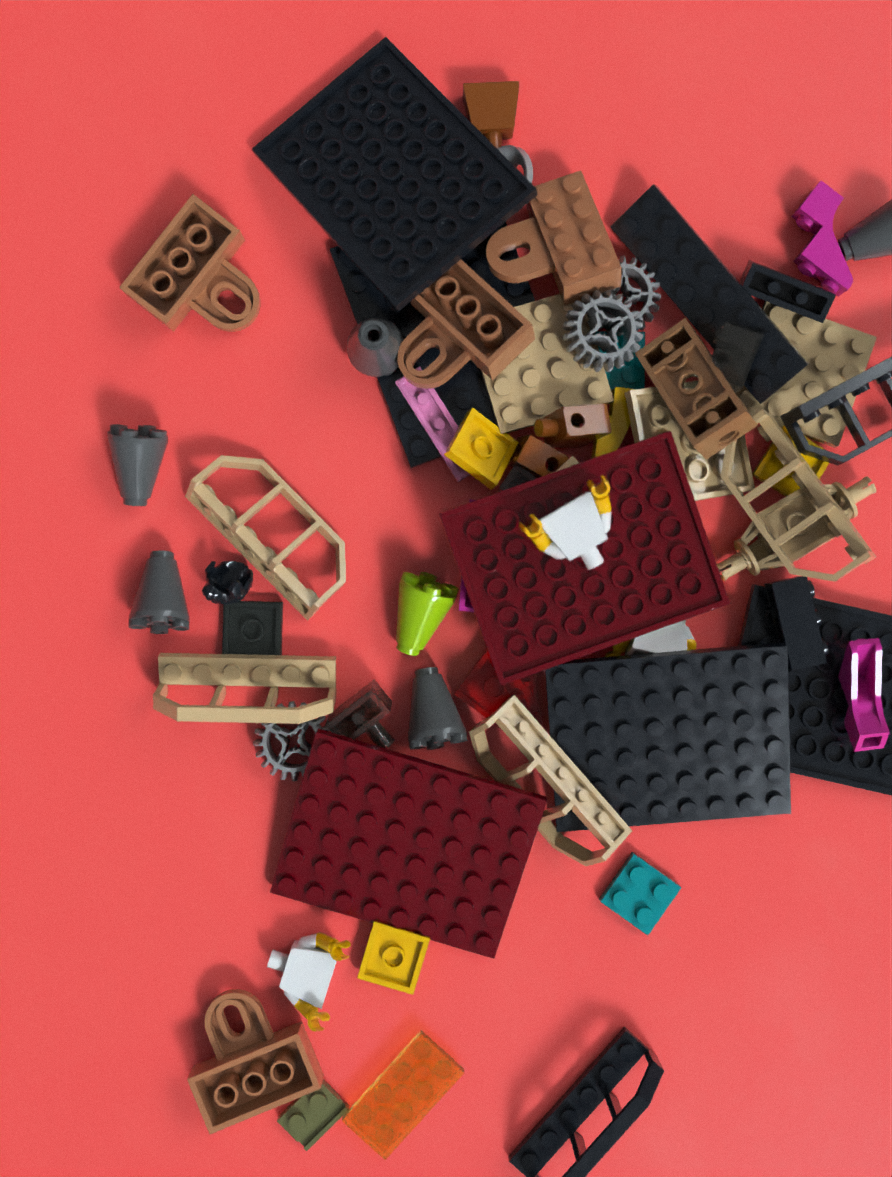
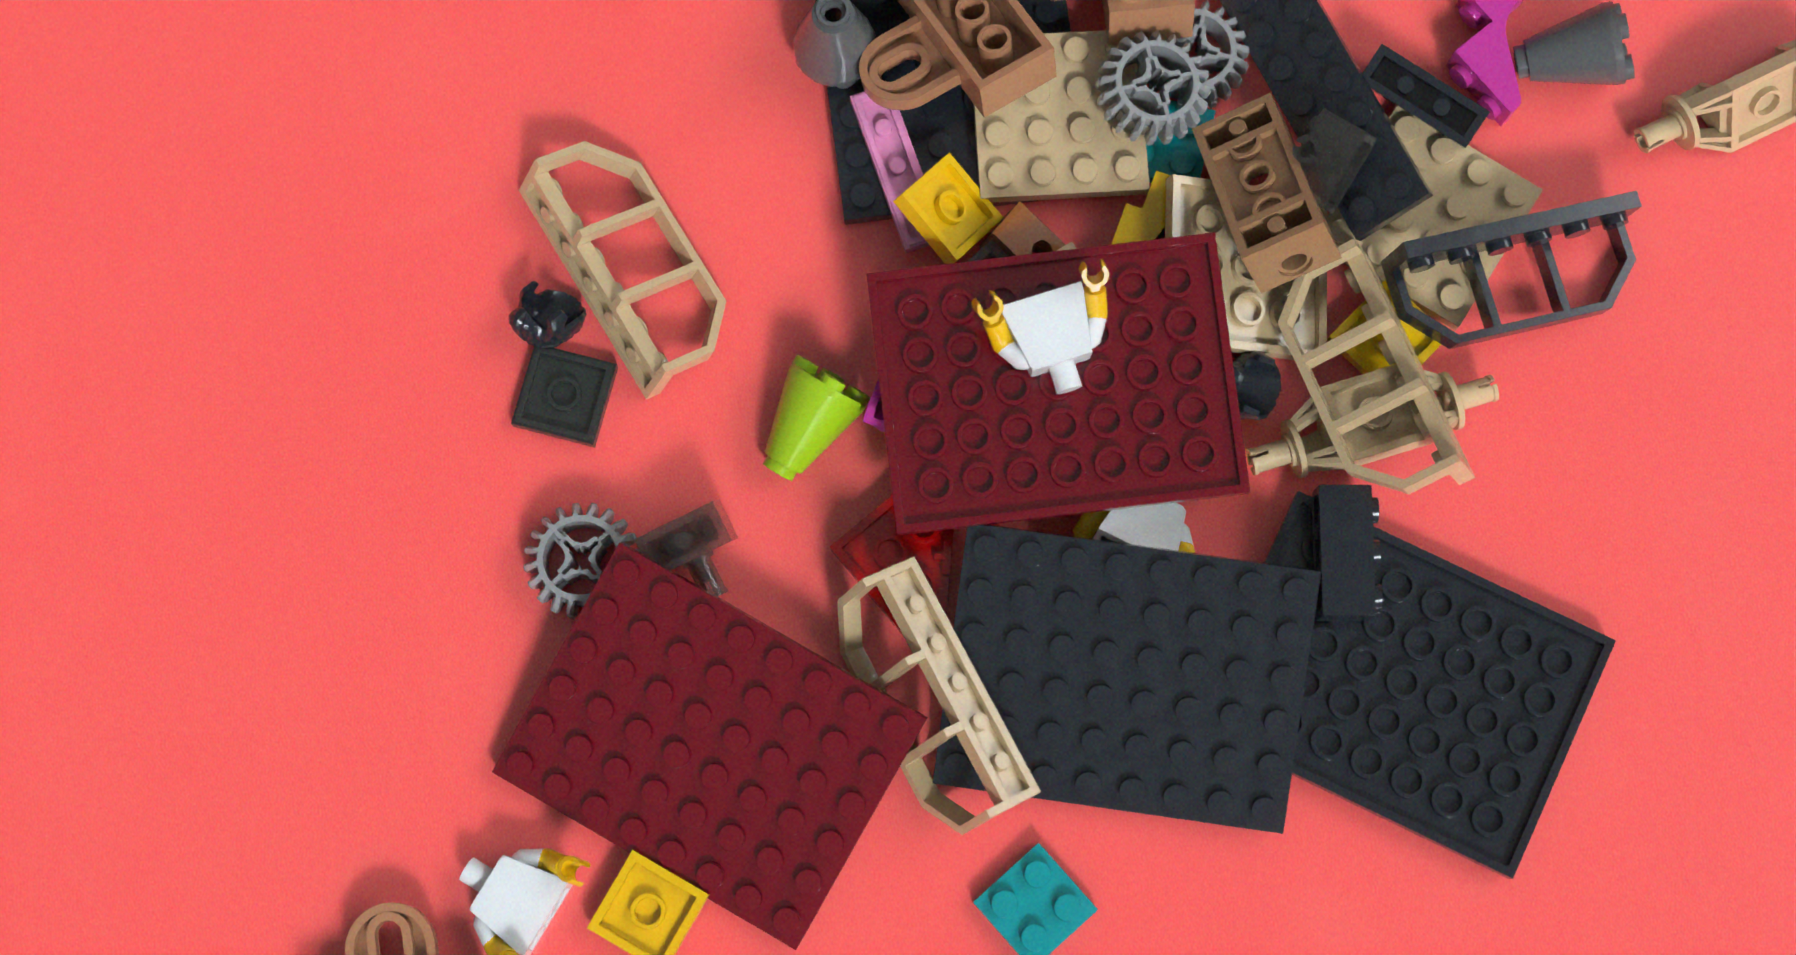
camera: 15 degrees right, 10 degrees down
(136, 460) = (466, 123): dark grey cone -> none
(160, 597) = (447, 316): dark grey cone -> none
(245, 670) = (539, 447): tan plate -> none
(433, 713) = (792, 567): dark grey cone -> none
(563, 430) = (1085, 207): dark orange torso -> none
(714, 519) = (1256, 384): none -> black hair
(861, 684) = (1421, 671): dark pink arch -> none

